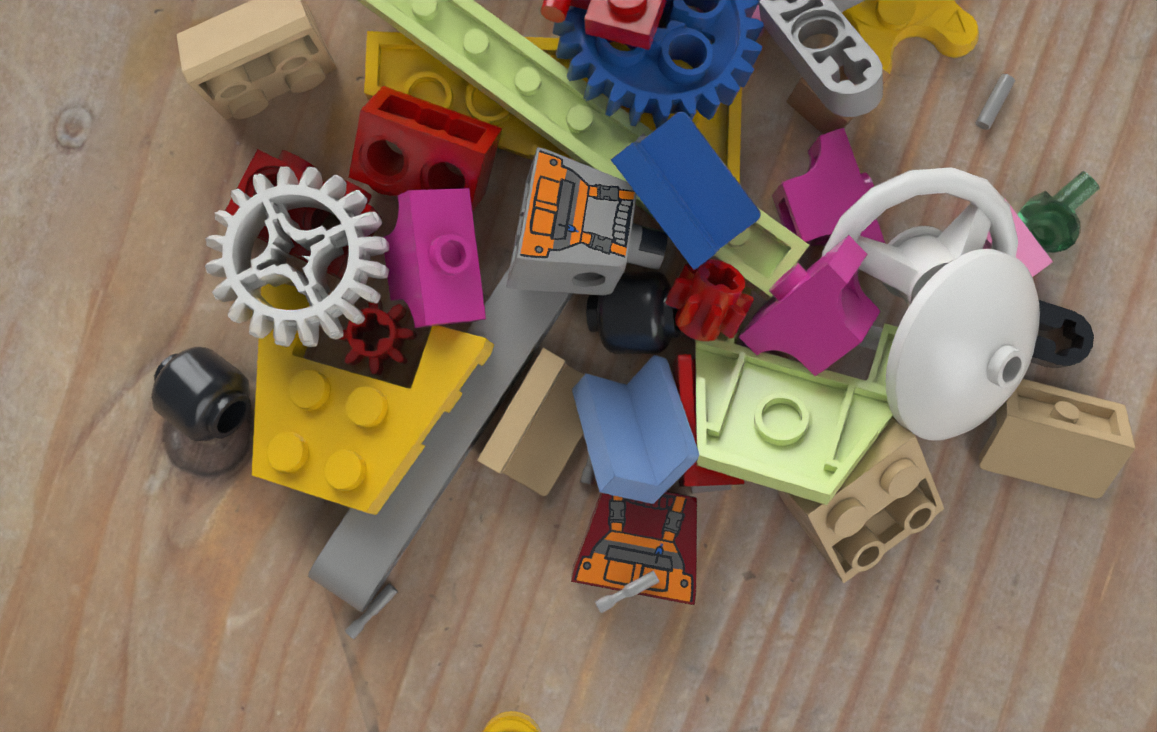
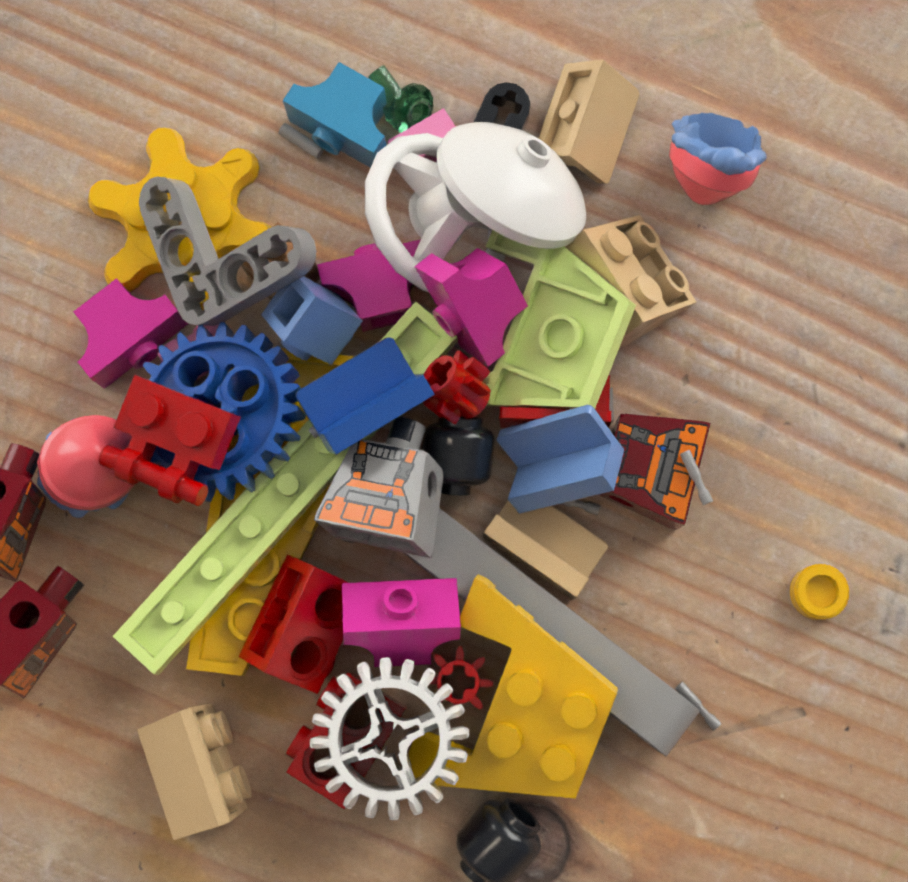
camera: 80 degrees left, 5 degrees down
(775, 126) = (311, 320): none -> medium blue brick
(1026, 593) = (714, 156): none -> medium blue hair
(1035, 140) = (341, 113): none -> dark azure brick

